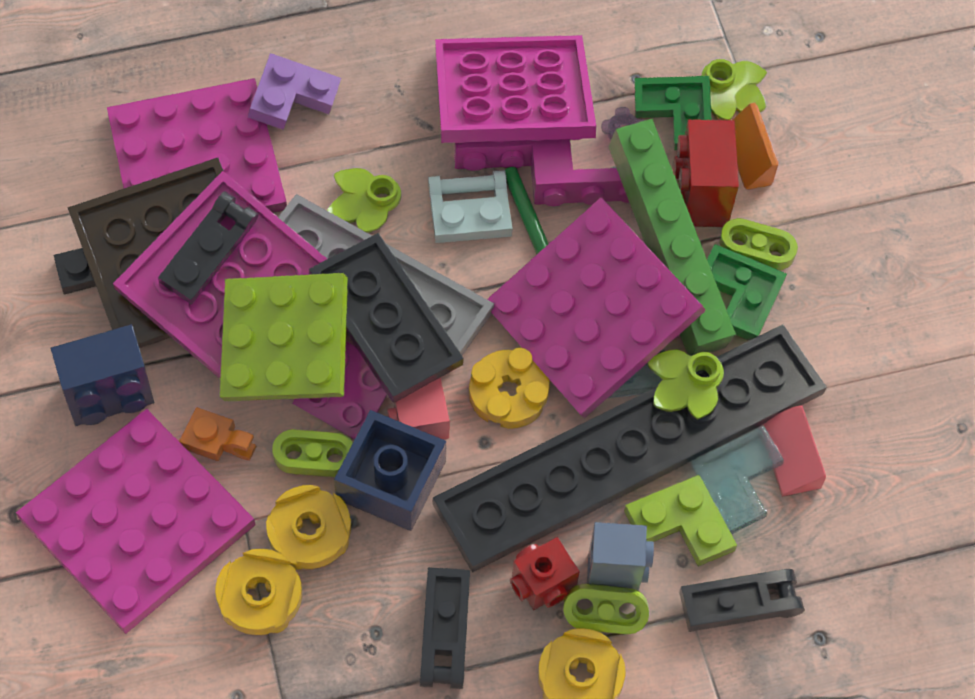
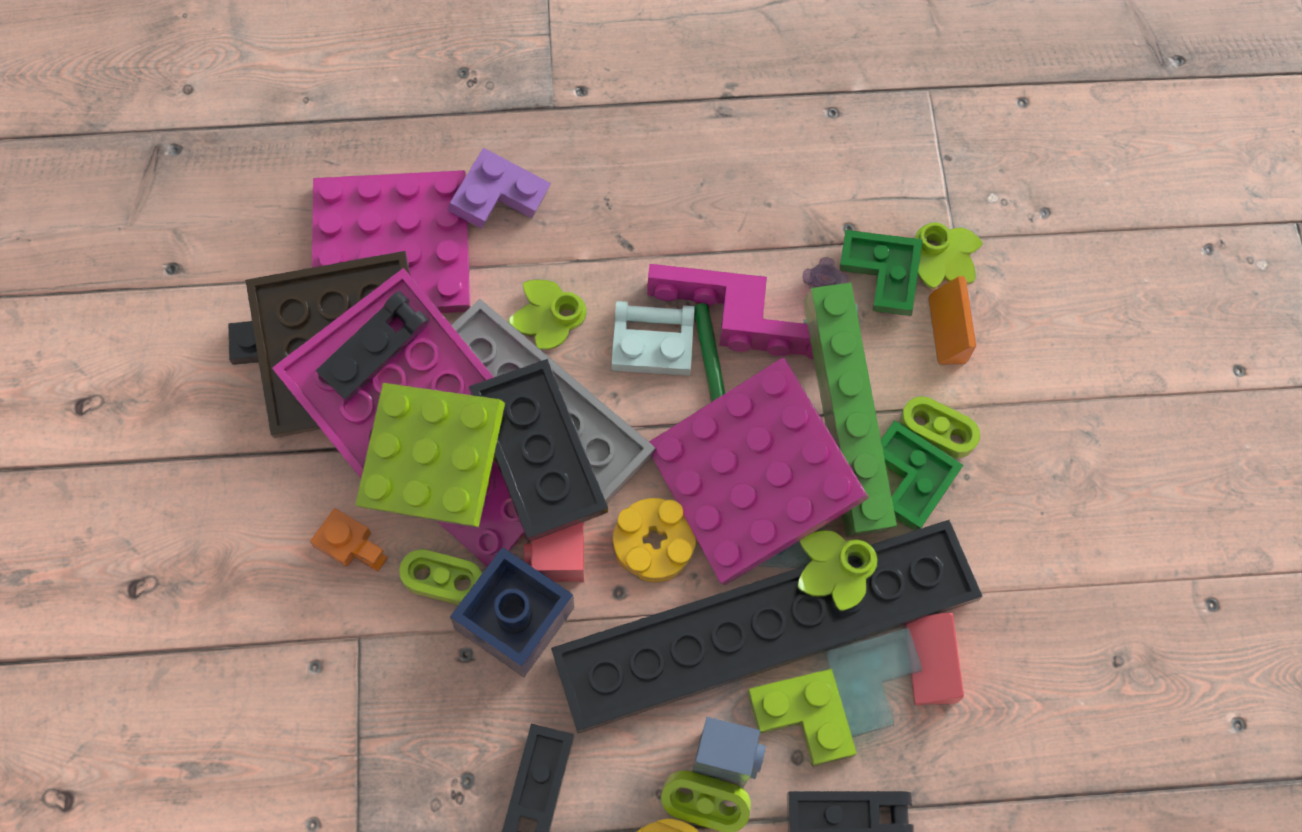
camera: 10 degrees right, 5 degrees up
(102, 376) = (243, 462): dark blue brick -> none
(136, 520) = (250, 618): dark pink plate -> none
(272, 612) = (367, 740): yellow plate -> none
(321, 507) = (400, 642): yellow plate -> none
(514, 89) = (719, 224): dark pink plate -> none
(543, 574) = (656, 739): red brick -> none
(708, 171) = (900, 343): red brick -> none

